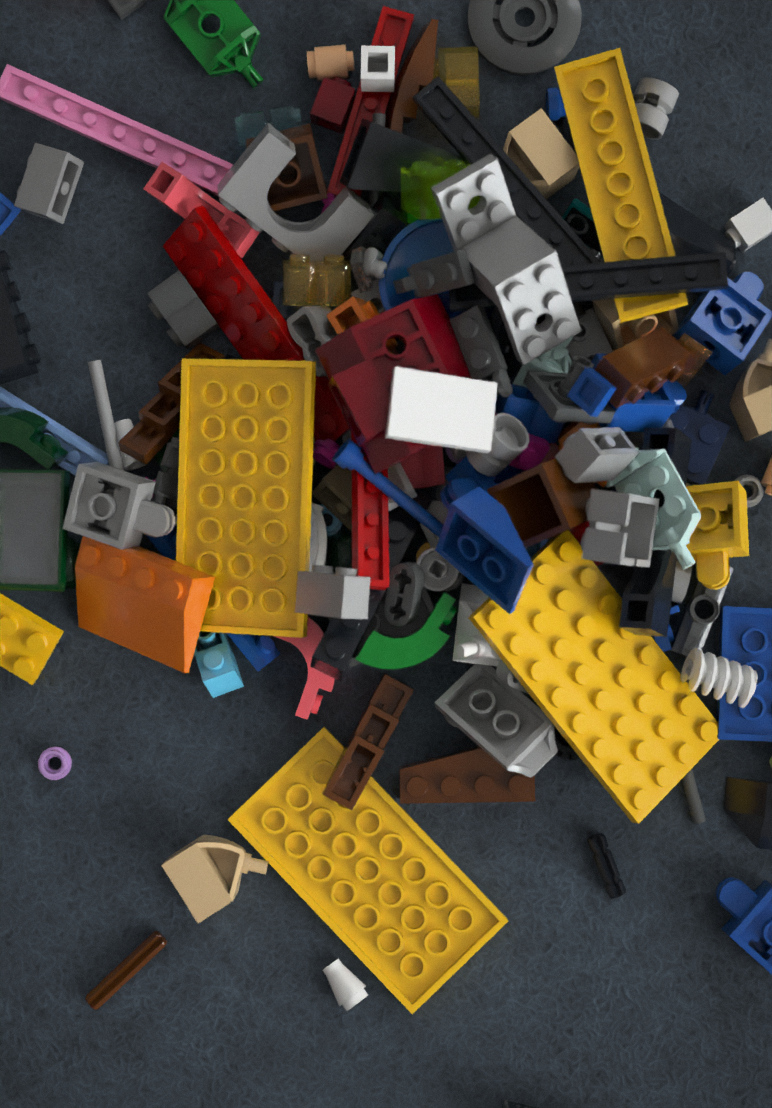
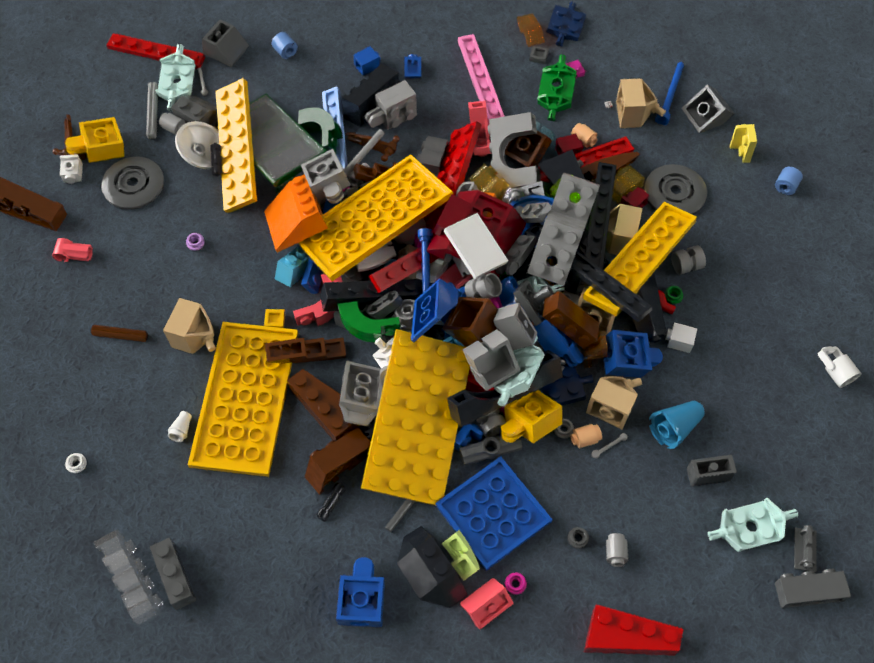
camera: 50 degrees right, 25 degrees down
(49, 183) = (440, 76): light grey brick -> none
(54, 303) = (393, 106): none -> light grey brick
(121, 367) = (381, 146): none -> reddish brown piece
(278, 744) = (274, 318): none -> yellow plate
(332, 594) = (358, 268): light grey brick -> none
(377, 68) = (597, 145): white brick -> none
(498, 93) = (637, 198): none -> dark red brick
(562, 816) = (335, 458): none -> reddish brown wedge
(591, 392) = (539, 299): blue plate -> none
(683, 166) = (673, 290): none -> green plate
(689, 201) = (666, 307): none -> red arm
(720, 675) = (463, 473): white piece -> none

